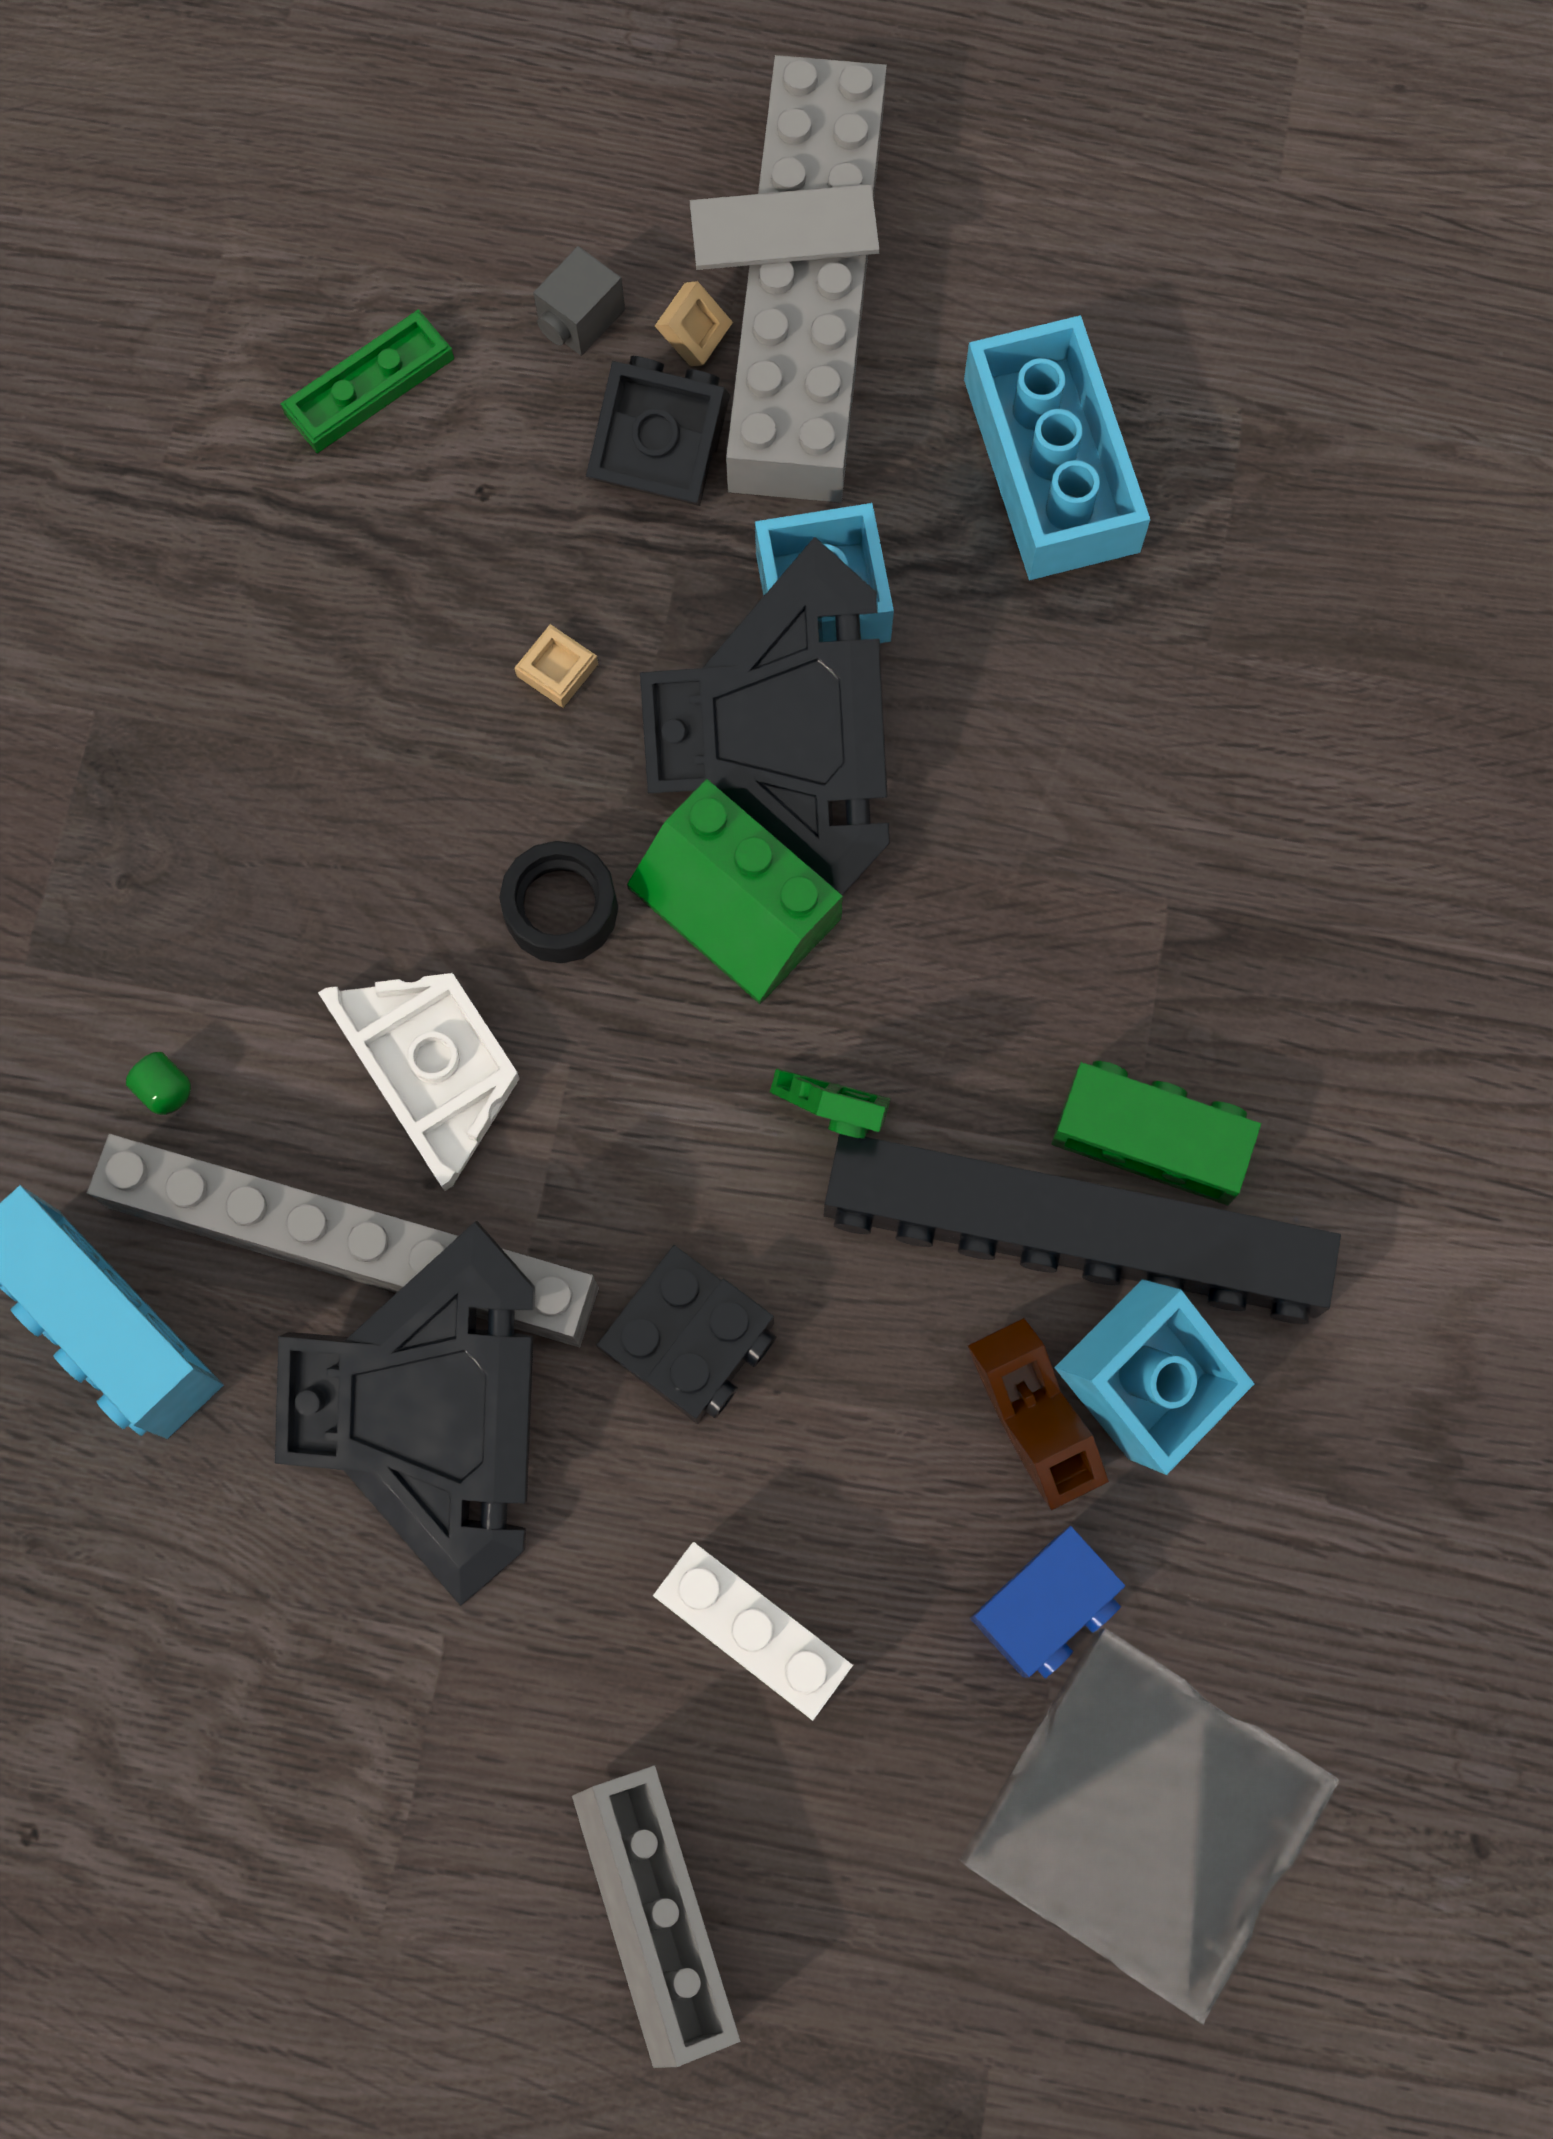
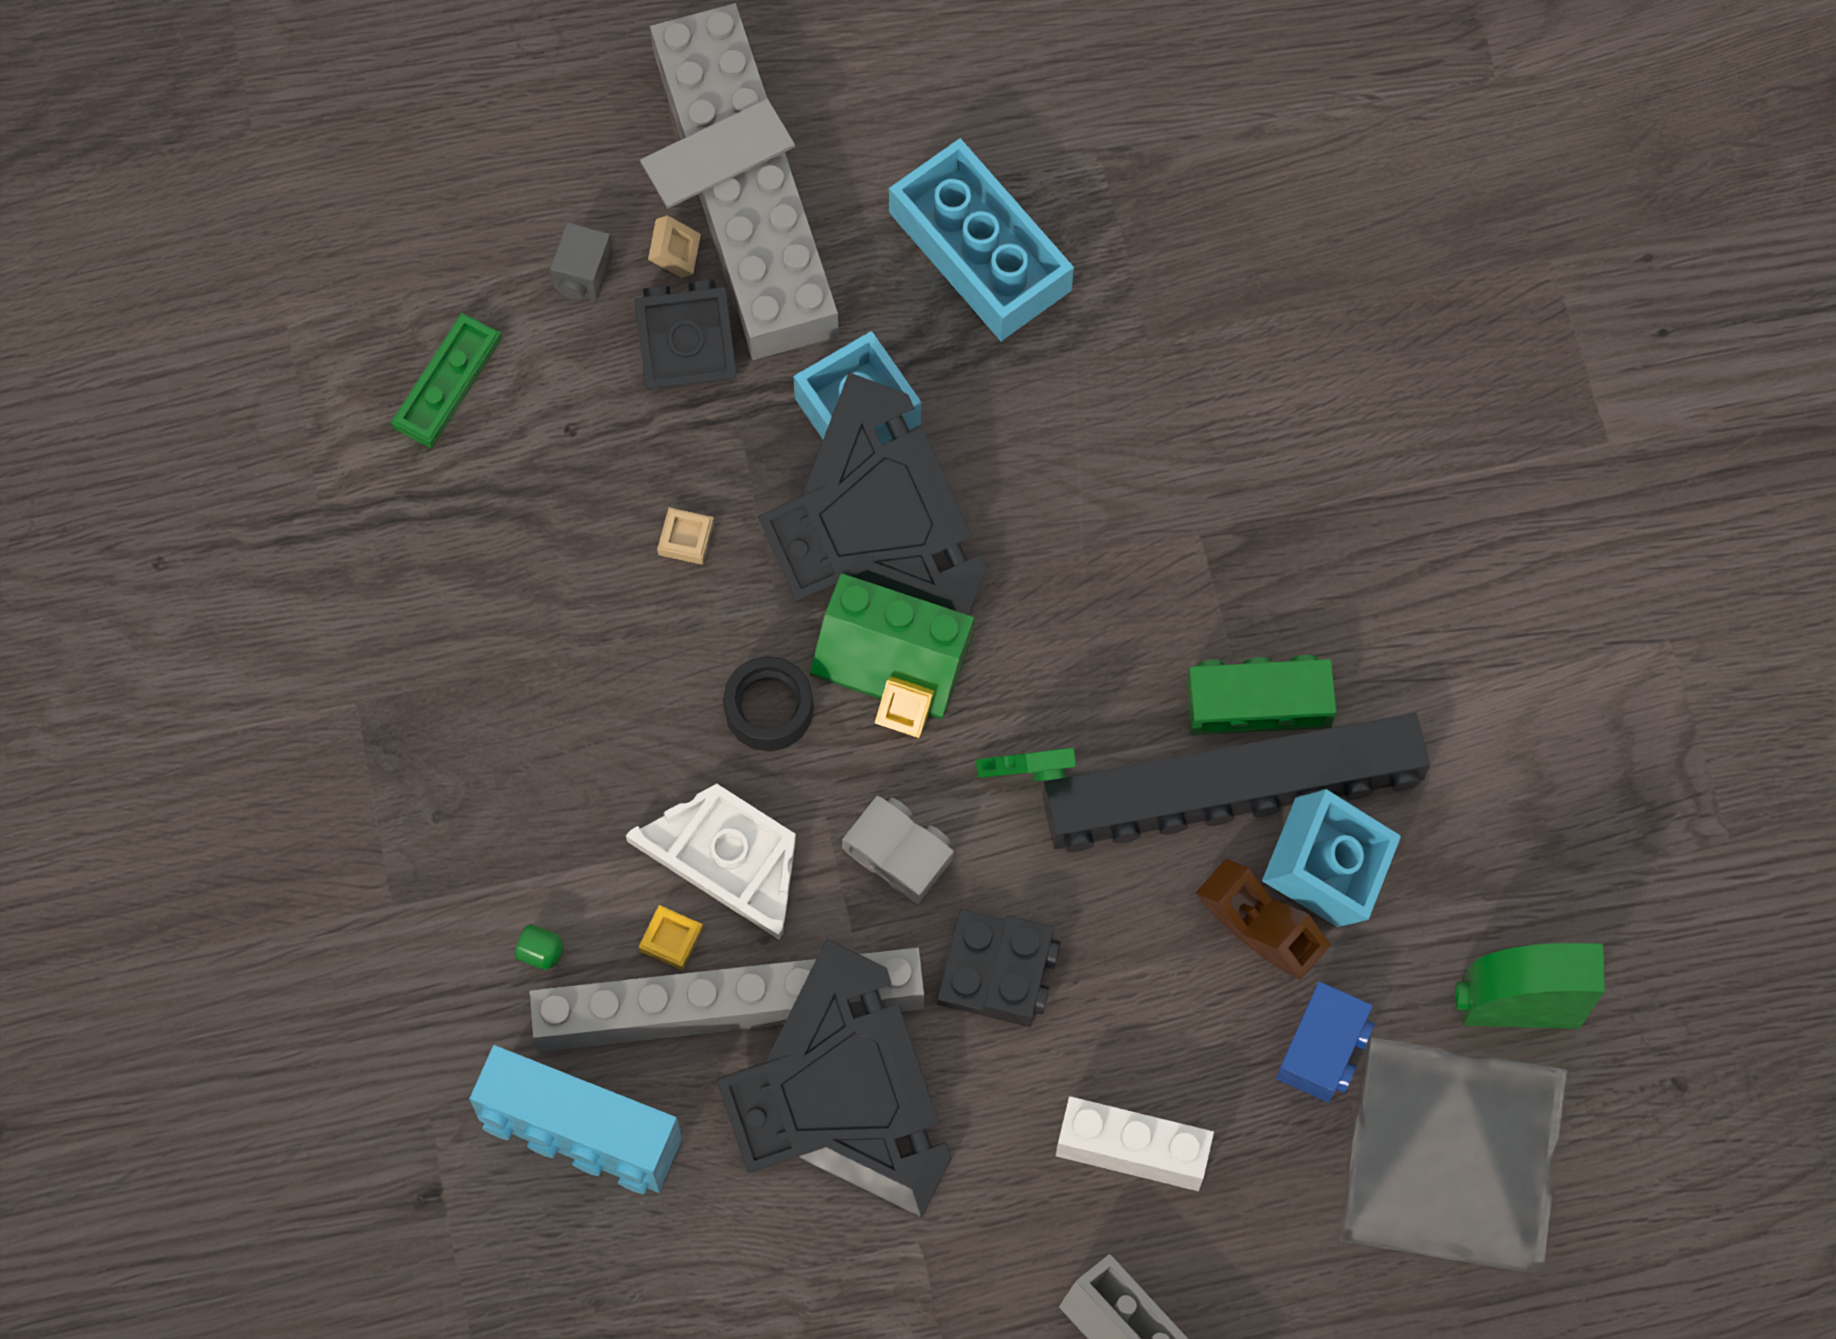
camera: 25 degrees left, 5 degrees down
(320, 1135) = (670, 937): none -> yellow tile
(632, 1139) = (898, 848): none -> light grey brick
(717, 970) = (904, 707): none -> tile
(1344, 1653) = (1533, 986): none -> green brick

